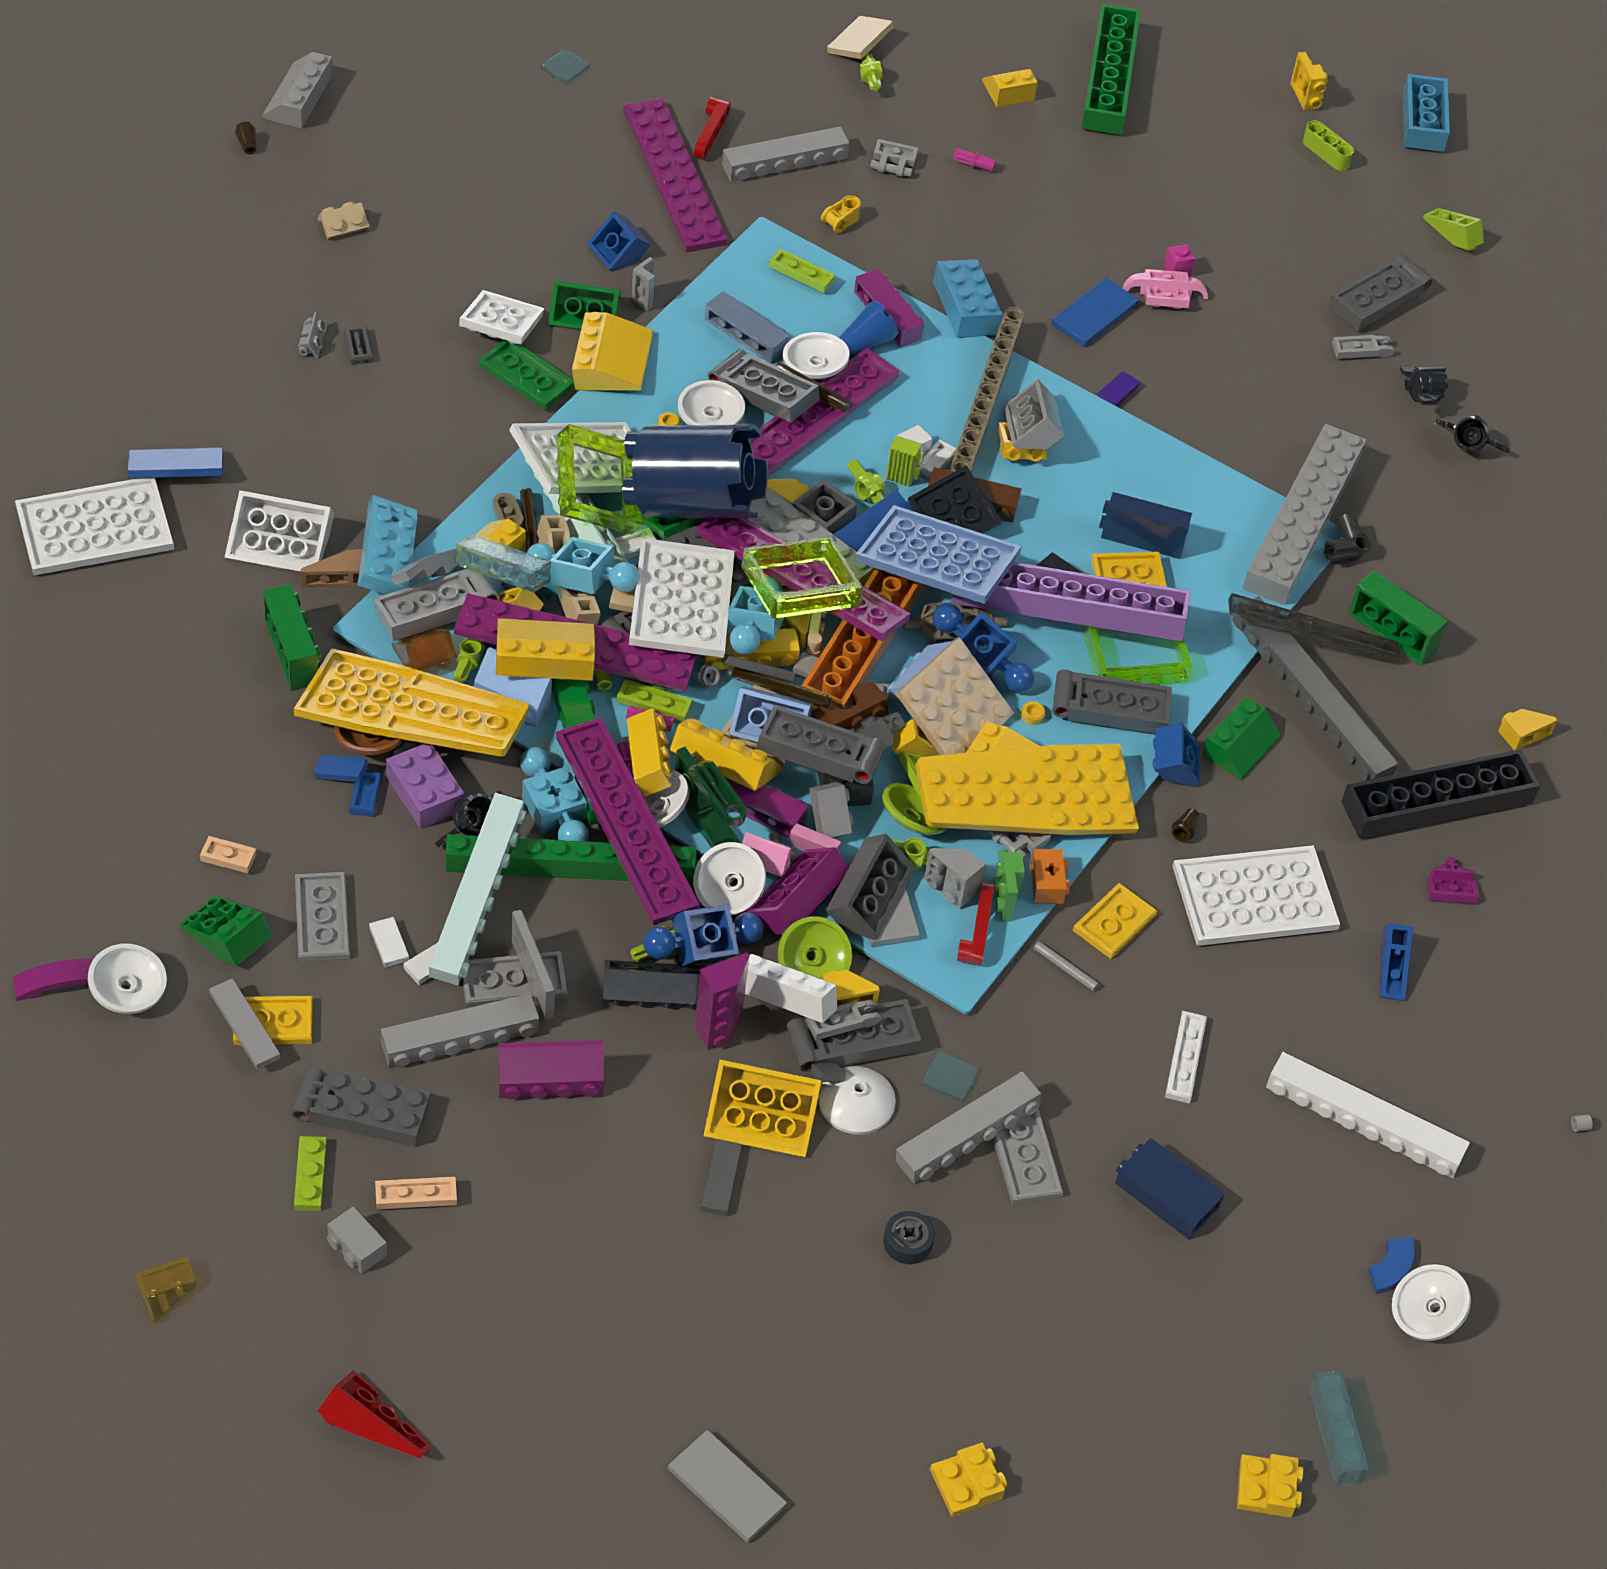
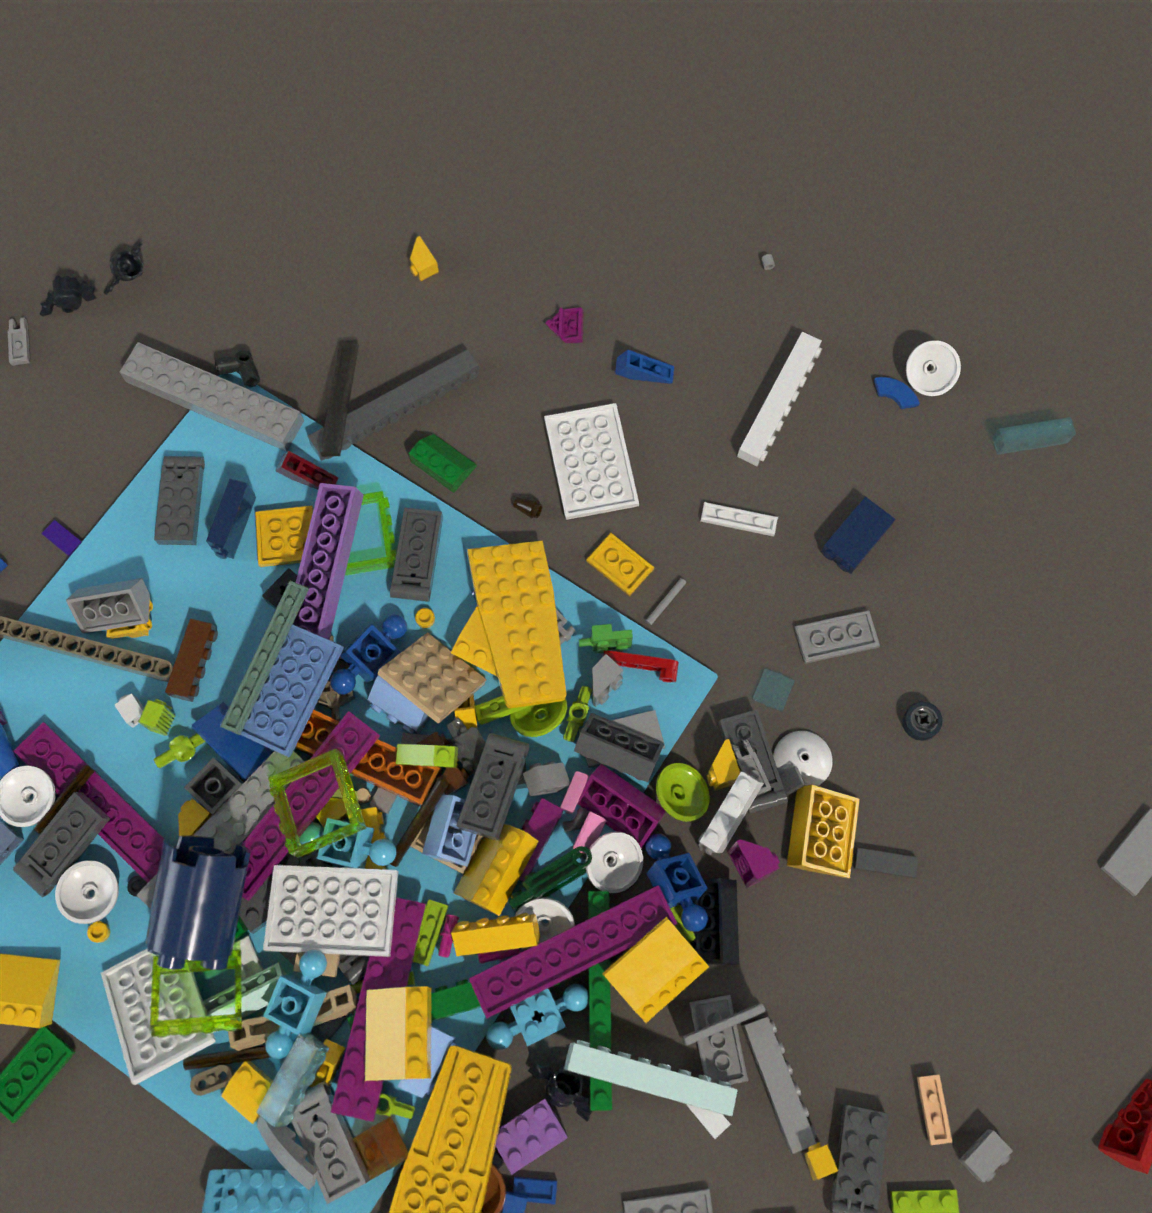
camera: 85 degrees left, 20 degrees up
(368, 1052) = (820, 1161): none -> yellow slope
(389, 942) = (691, 1154): white tile -> none
(551, 1069) = (814, 1004): magenta slope -> none
(601, 902) = (655, 970): none -> yellow slope
(713, 678) = (402, 886): light grey plate -> none
(758, 667) = (396, 835): dark grey tile -> none
(857, 690) = (427, 755): none -> lime slope
(938, 456) = (144, 689): white tile -> none
(957, 501) = (213, 674): black plate -> none
(968, 1128) = (828, 675): light grey brick -> none
(969, 1479) = (1109, 681): yellow plate -> none
(972, 536) = (264, 657): none -> sand green tile
(1048, 876) = (602, 609): orange brick -> none
(1172, 484) = (179, 500): none -> dark grey hinge
(1177, 755) = (466, 509): blue slope -> none
(1212, 600) = (304, 471): none -> dark red slope
(1269, 1484) = (1079, 483): yellow plate -> none
(1397, 616) = (321, 337): green brick -> none
(1440, 793) = (492, 323): black brick -> none

